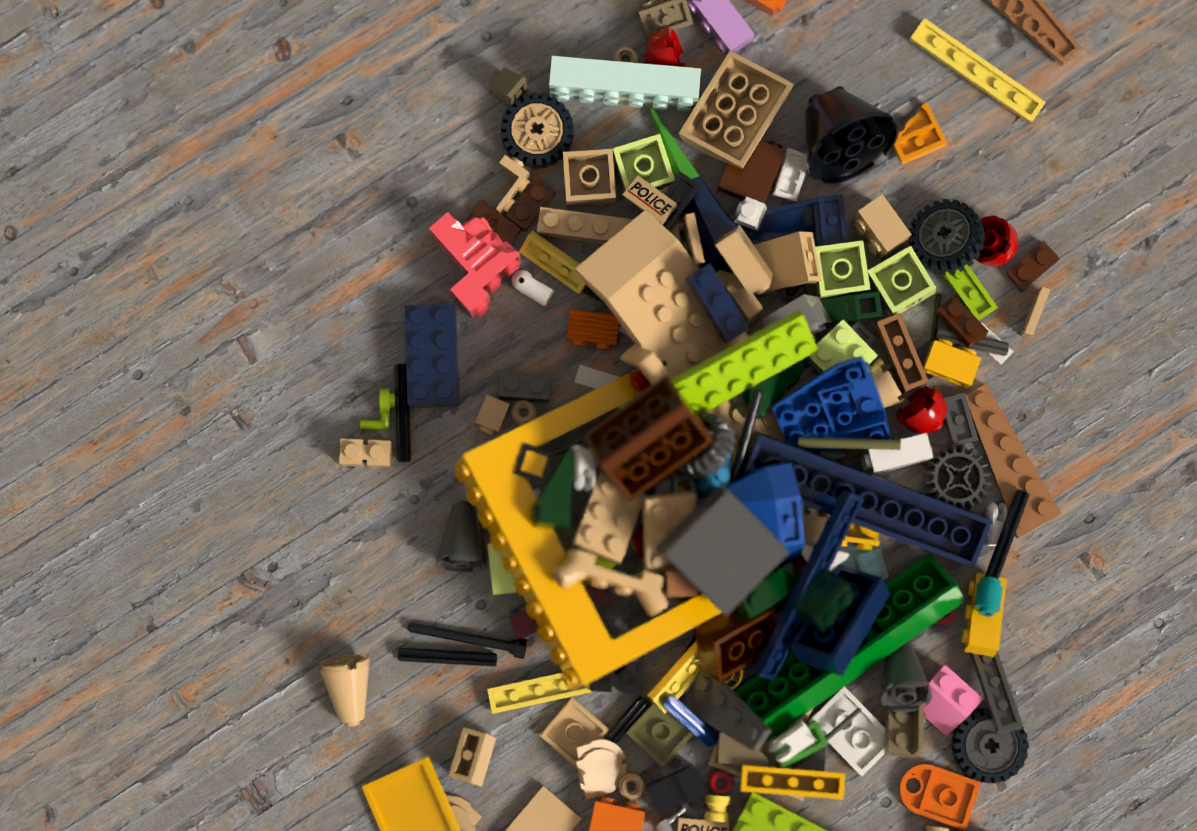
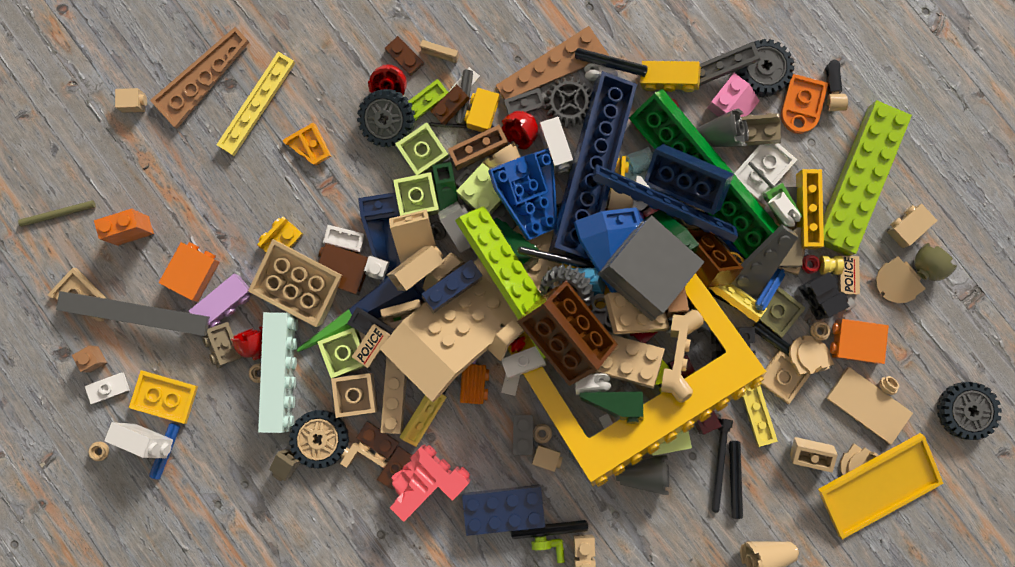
camera: 90 degrees left, 0 degrees up
(531, 287) = (444, 434): white piece -> none
(536, 462) = (591, 422): piece -> none
(615, 384) = (522, 362): none -> white plate
(800, 94) = (282, 232): none -> yellow bracket
(824, 601) = (677, 190): clear green brick -> none
(845, 136) = (310, 198): black cone -> none
(850, 443) = (552, 179): olive bar -> none
(880, 227) = (381, 167): tan brick -> none
(988, 596) = (659, 70): teal brick -> none

